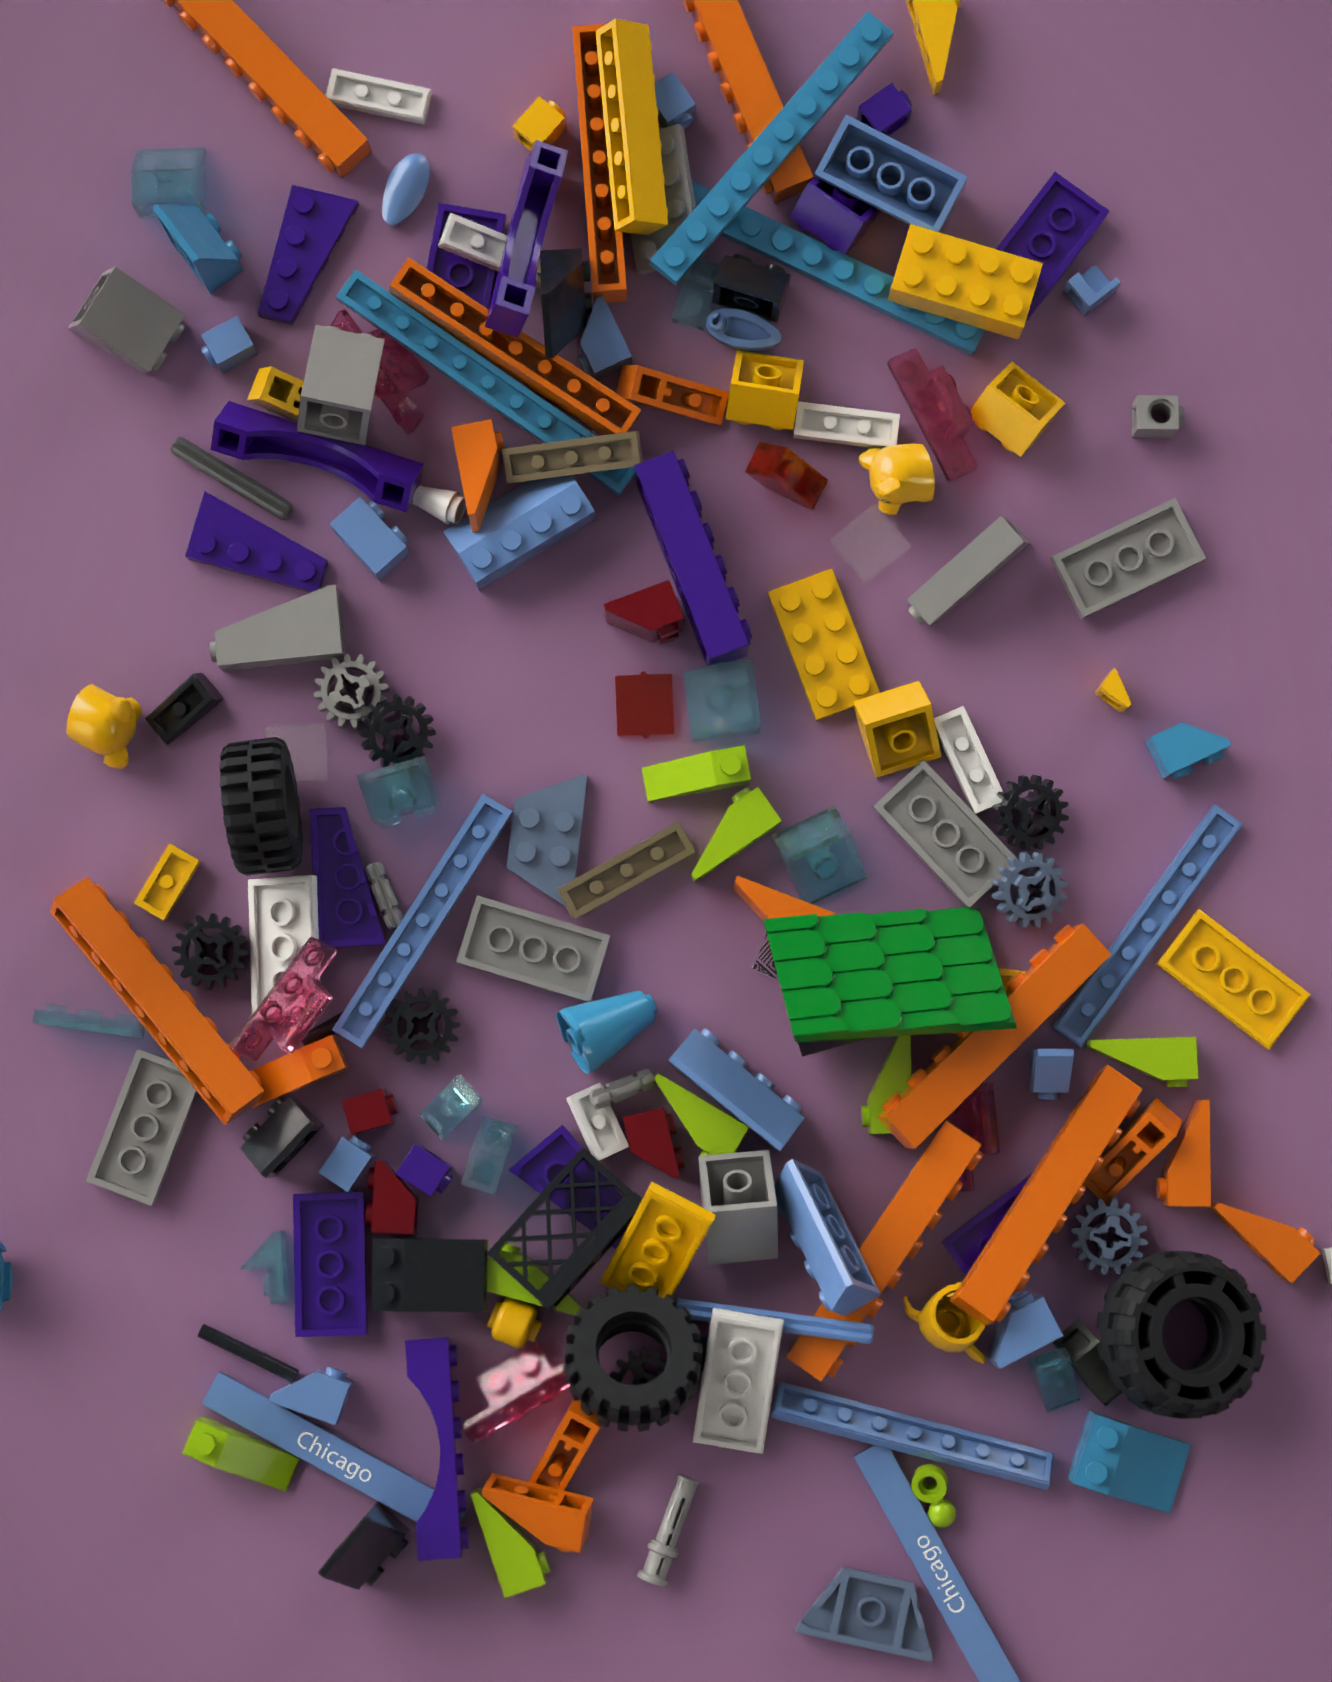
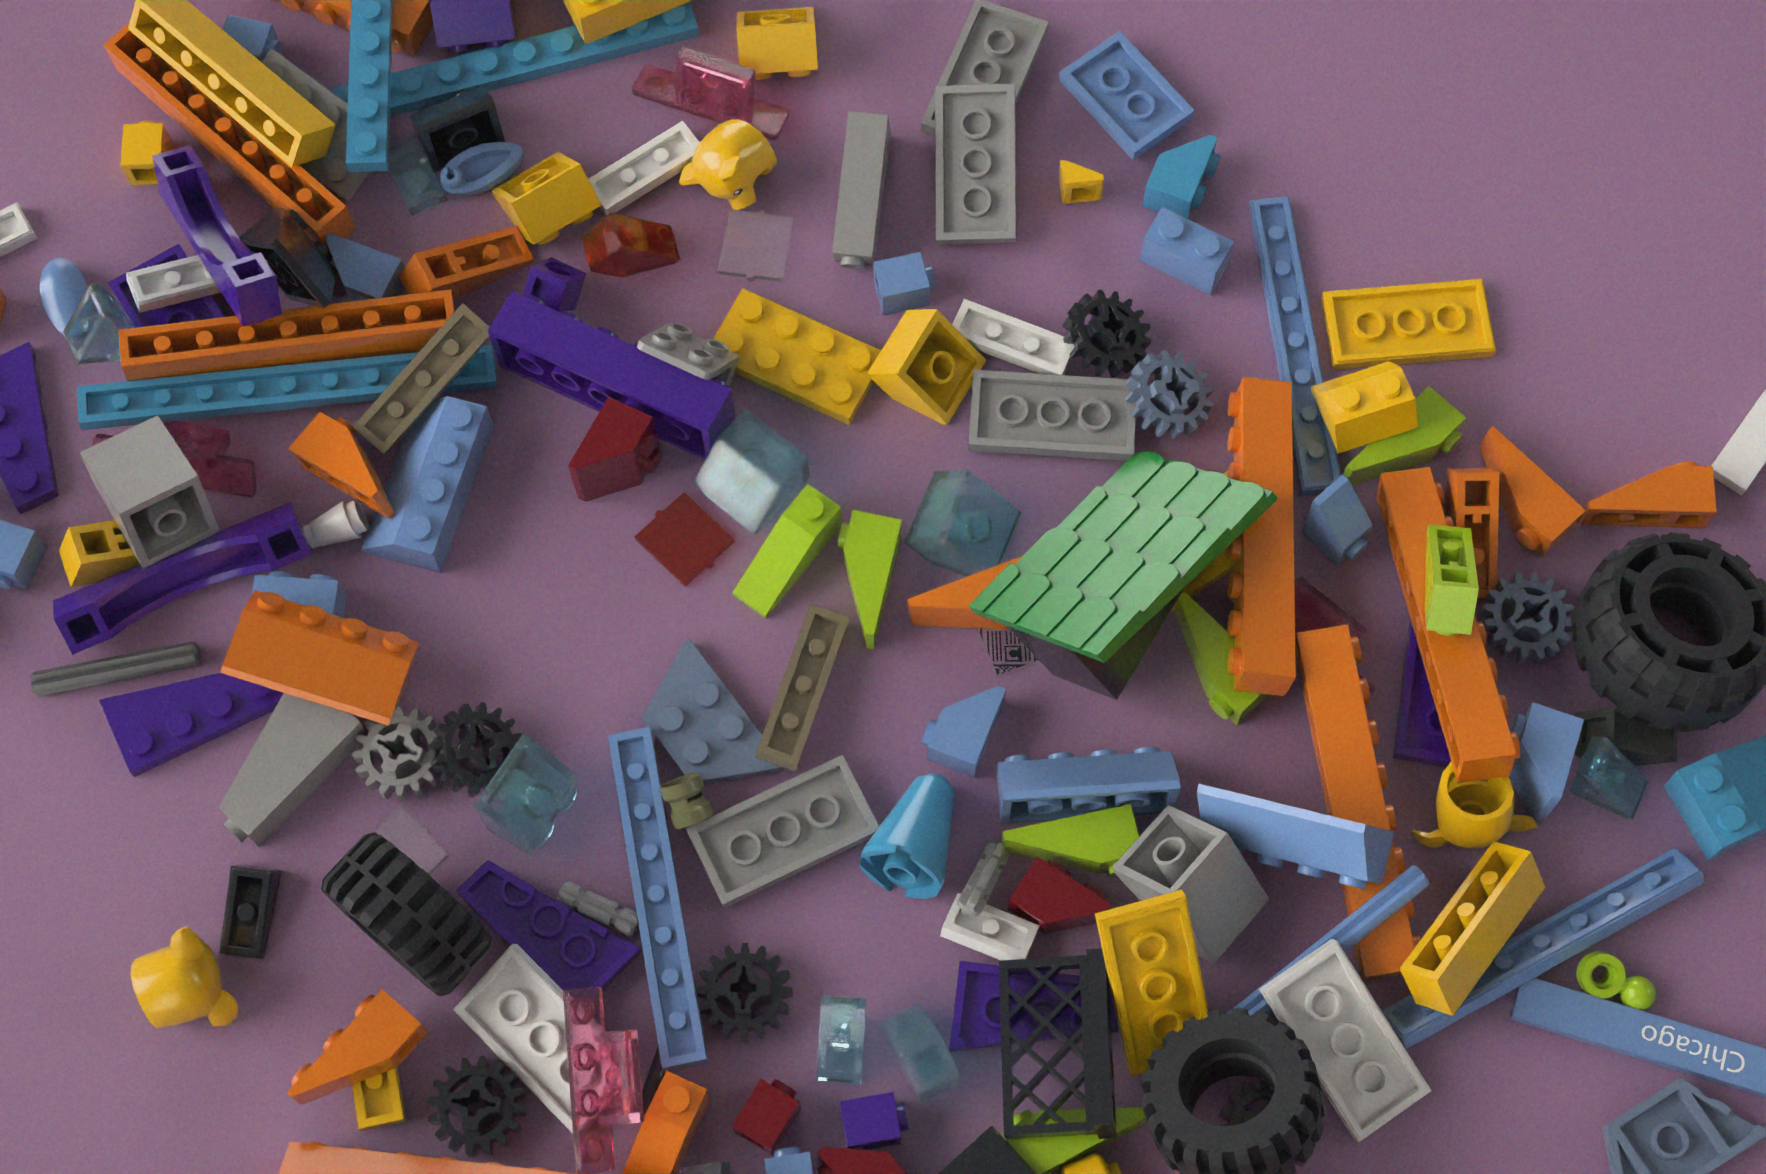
camera: 40 degrees left, 15 degrees down
(183, 862) = (368, 1046): none -> orange slope
(350, 592) = (320, 657): none -> orange slope
(404, 235) = (95, 327): none -> clear light blue slope
(492, 878) = (686, 800): none -> olive wheel
(696, 987) = (964, 731): none -> medium blue slope
(710, 462) = (555, 284): none -> dark purple brick
(749, 591) = (698, 356): none -> light grey bracket
(877, 1389) = (1472, 928): none -> yellow brick
(936, 658) = (903, 283): none -> medium blue brick
(1058, 619) = (975, 163): none -> light grey plate
(1070, 1176) = (1450, 580): none -> lime slope
(1136, 802) = (1186, 251): none -> medium blue brick
(1141, 1011) = (1366, 406): none -> yellow slope
(1207, 656) = (1126, 95): none -> medium blue plate

